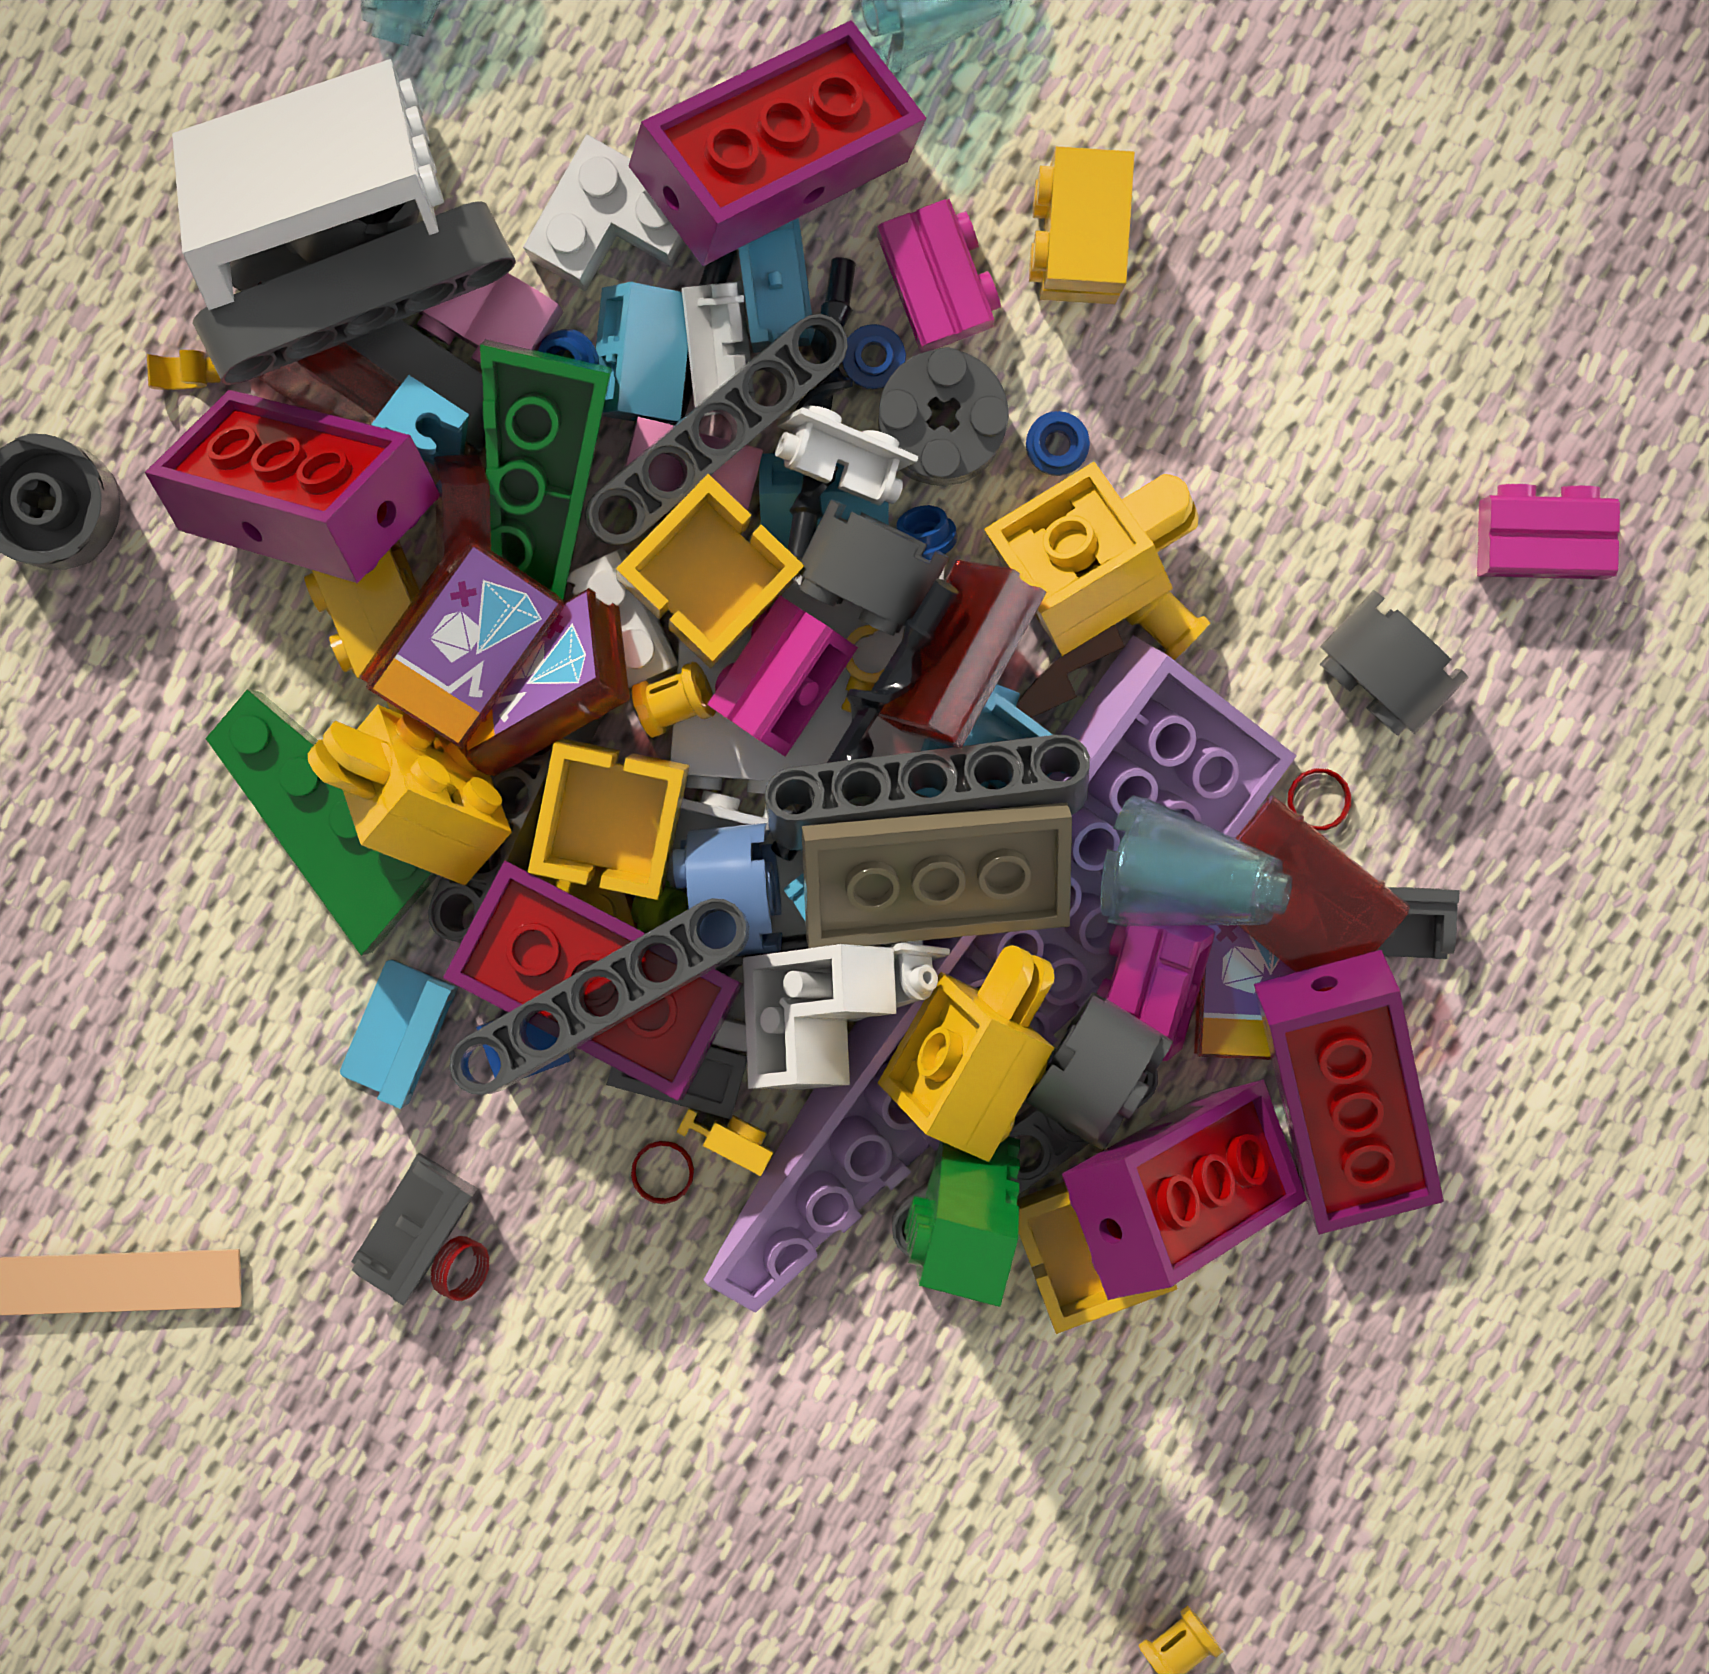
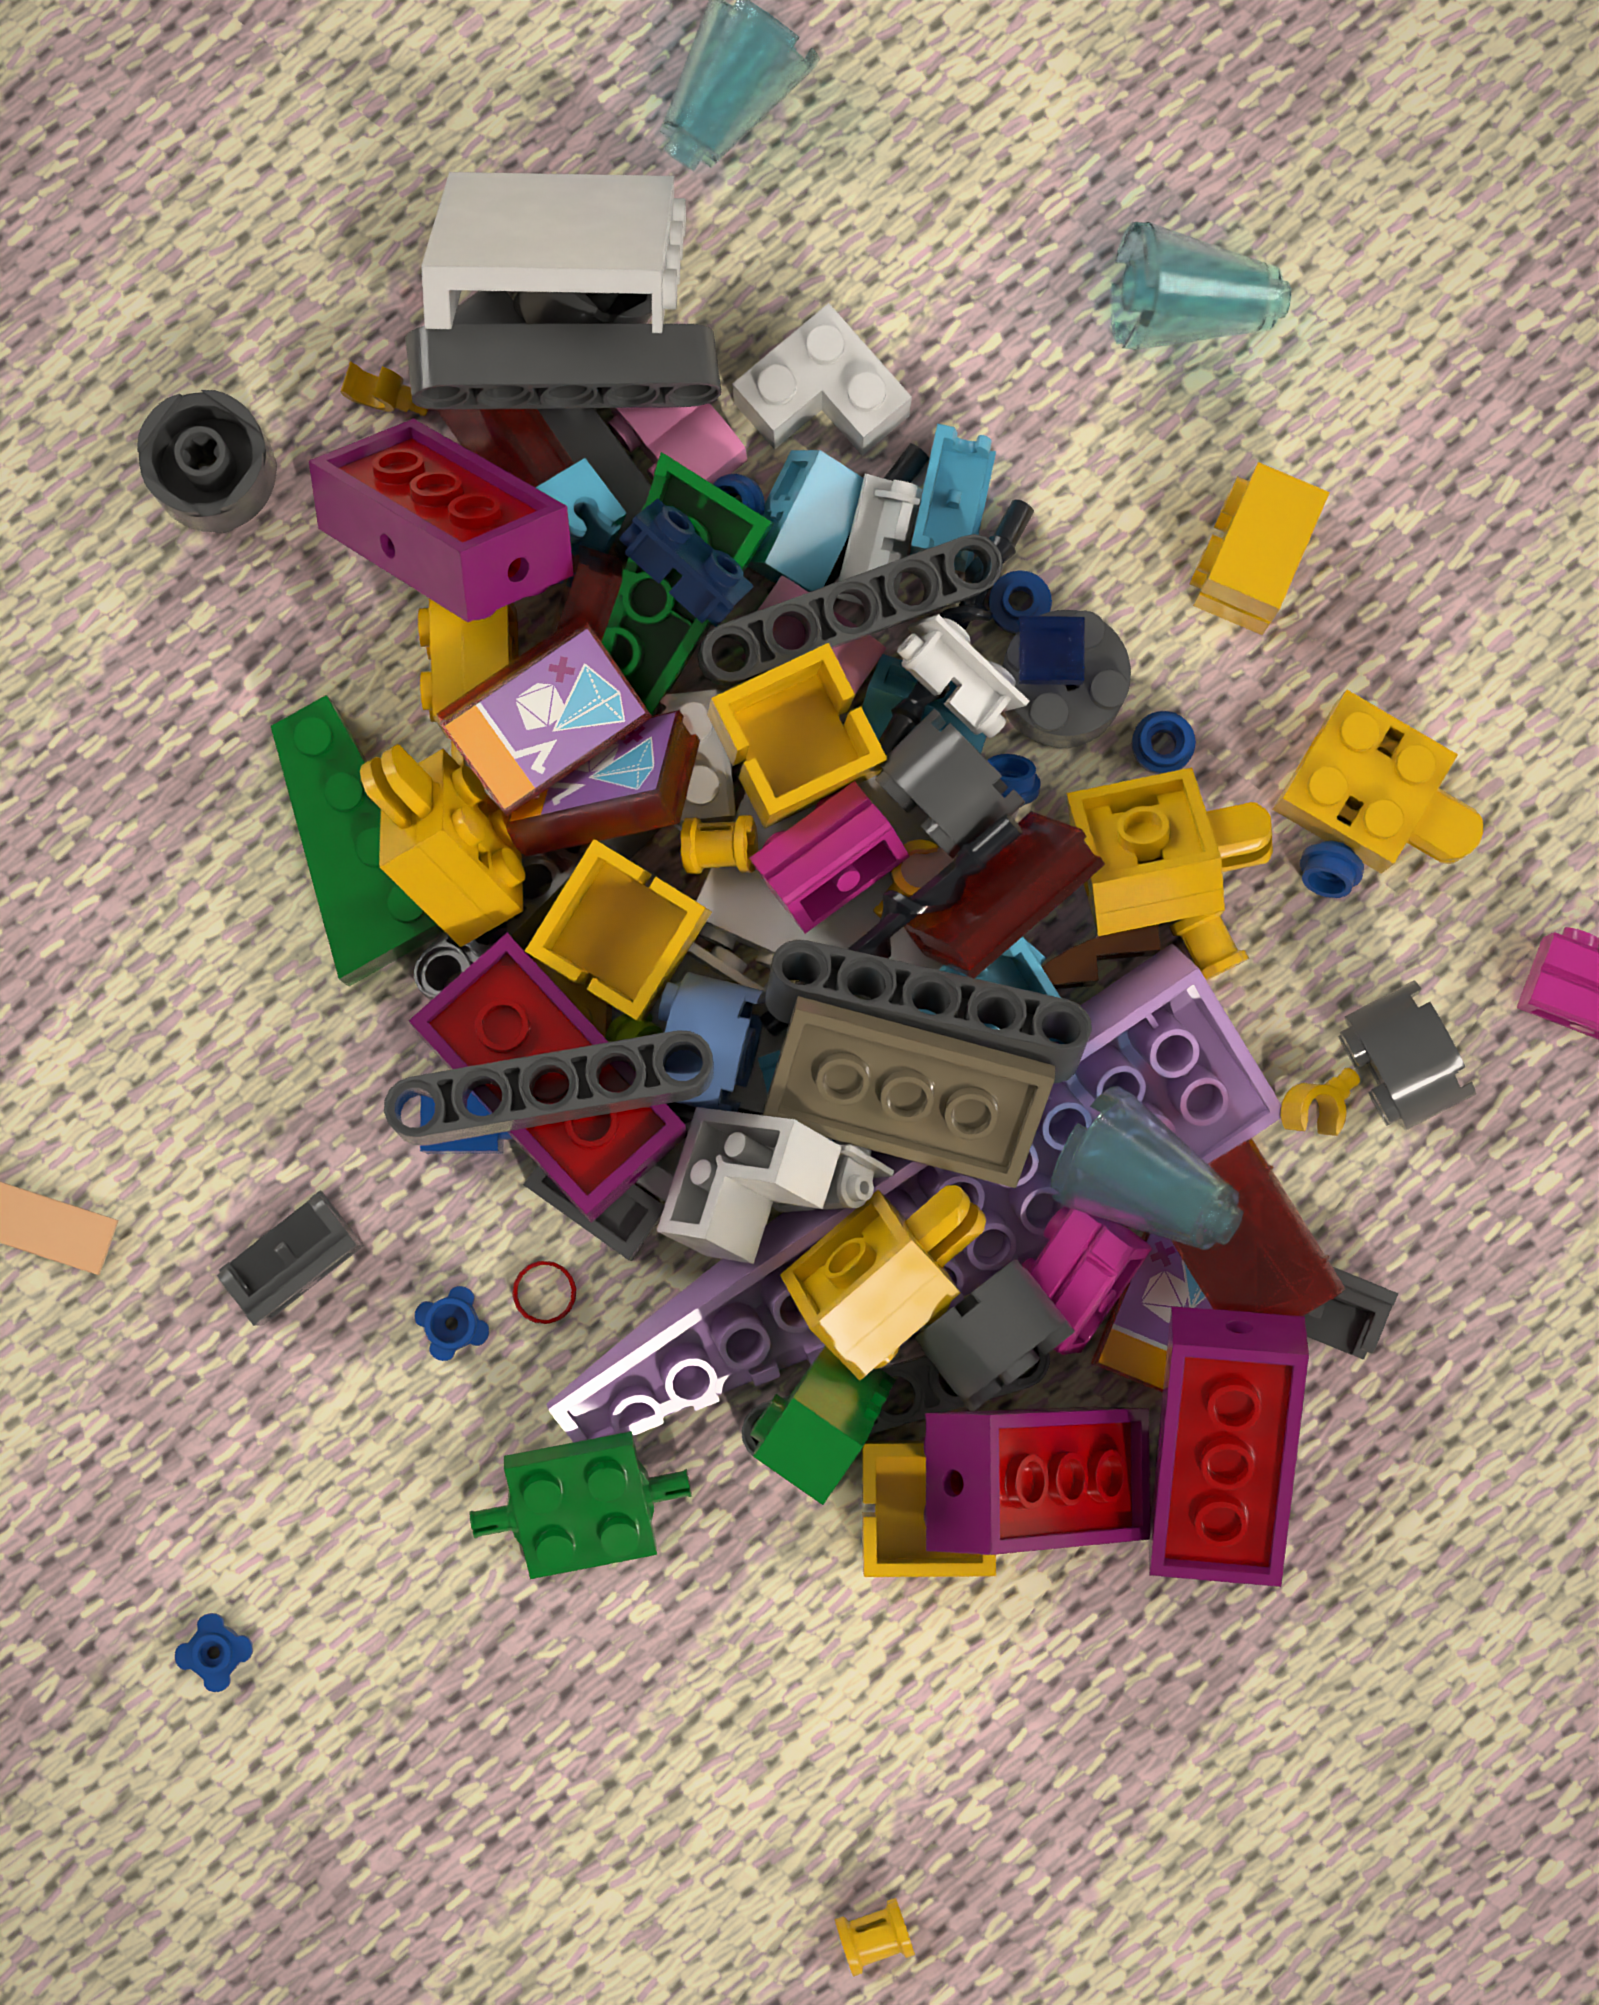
camera: 20 degrees right, 5 degrees down
(398, 1032) = (344, 1069): medium azure panel -> none
(441, 1285) = (322, 1289): red axle -> none
(494, 1600) = (231, 1646): none -> blue plate
(572, 450) = (666, 540): none -> dark blue hinge
(584, 1250) = (434, 1317): none -> blue plate
(735, 1141) = (624, 1282): yellow plate -> none
(768, 1357) = (580, 1505): none -> green plate
(776, 142) = (1000, 370): brick -> none
(921, 399) = (1051, 650): none -> clear blue tile
(937, 274) = (1106, 546): dark pink brick -> none
(1258, 508) = (1331, 869): none -> blue plate
(1277, 411) = (1381, 784): none -> yellow brick
(1332, 727) = (1330, 1100): none -> yellow piece
(1343, 783) = (1320, 1152): red axle -> none

